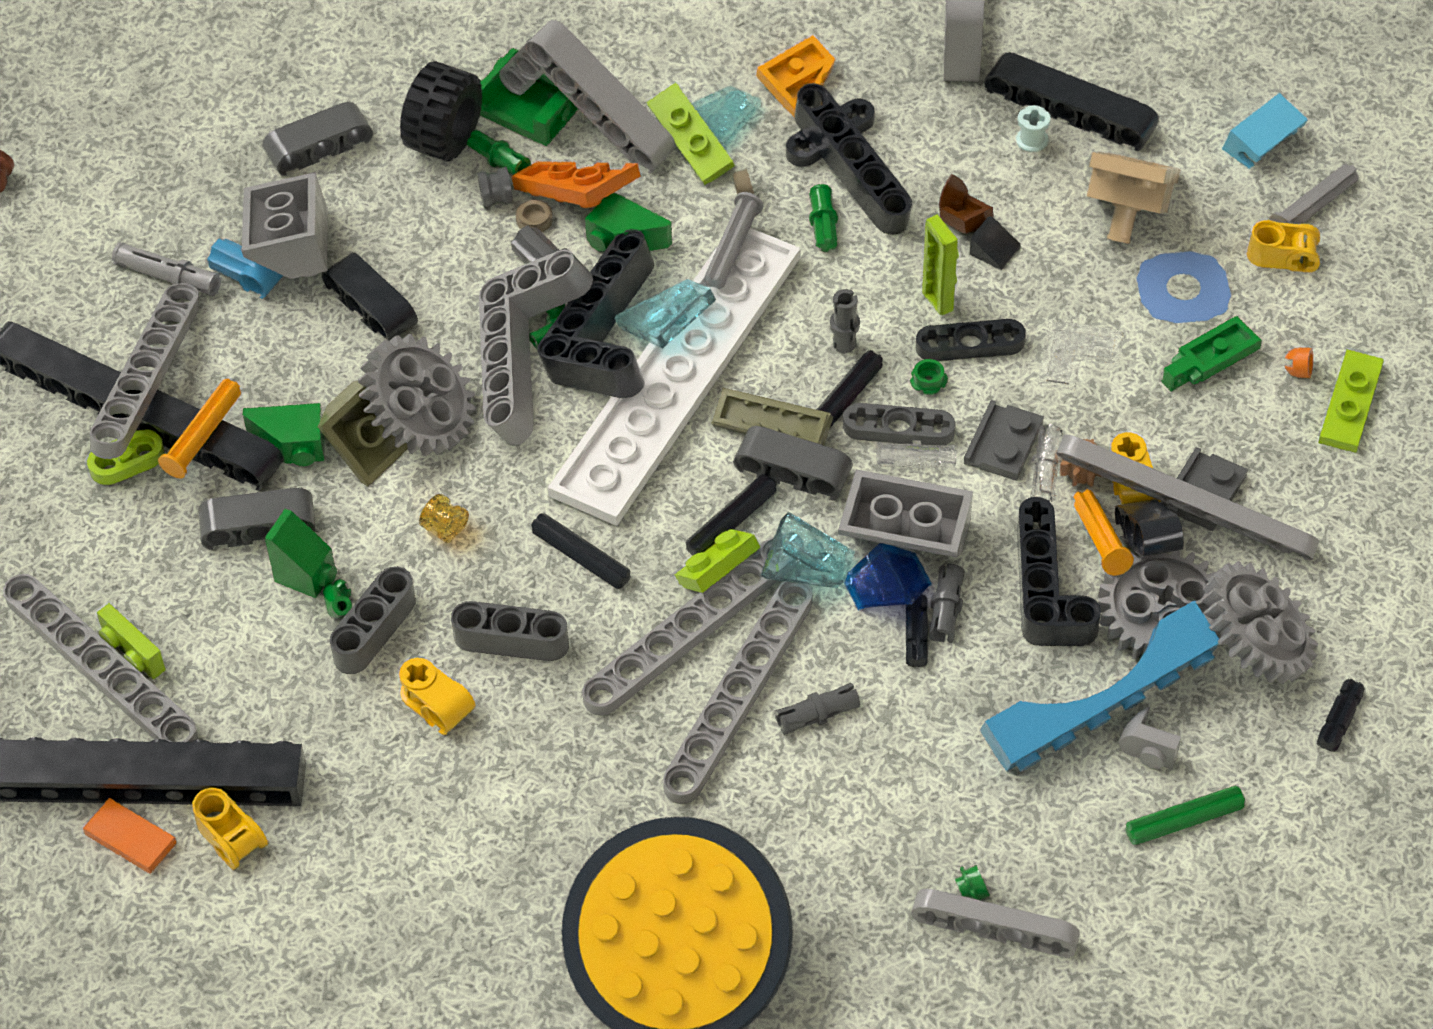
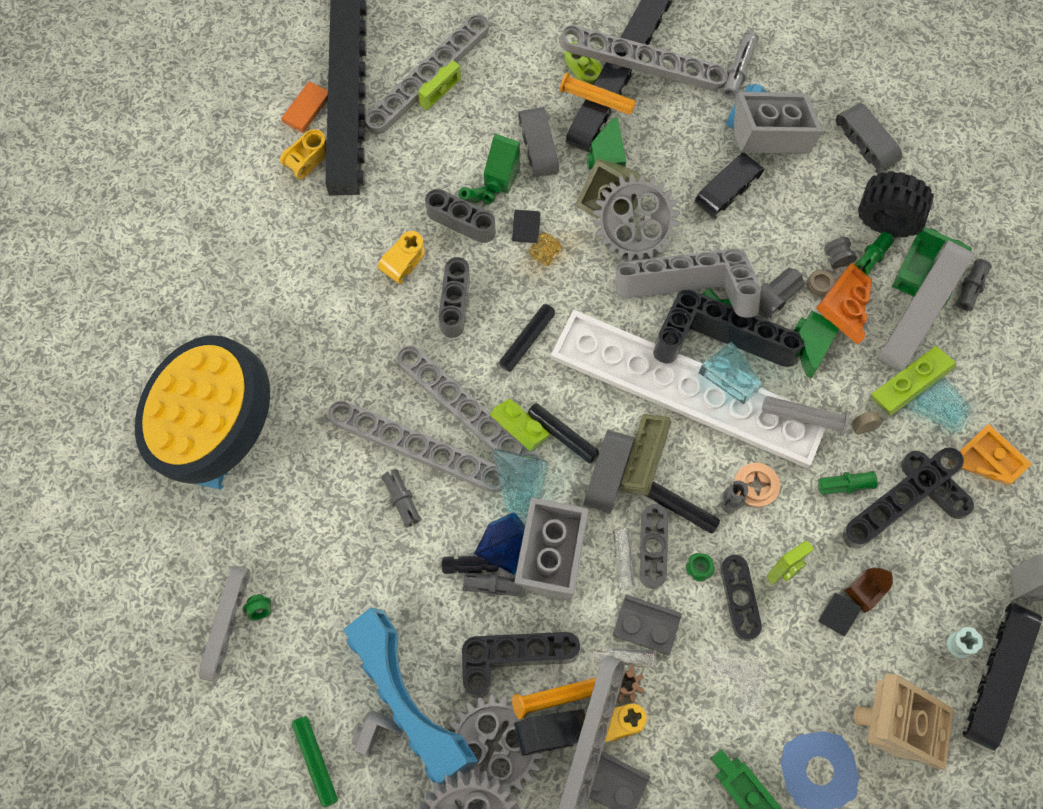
camera: 85 degrees right, 15 degrees up
(399, 543) = (526, 226): none -> black slope
(804, 308) = (765, 476): none -> light nougat gear

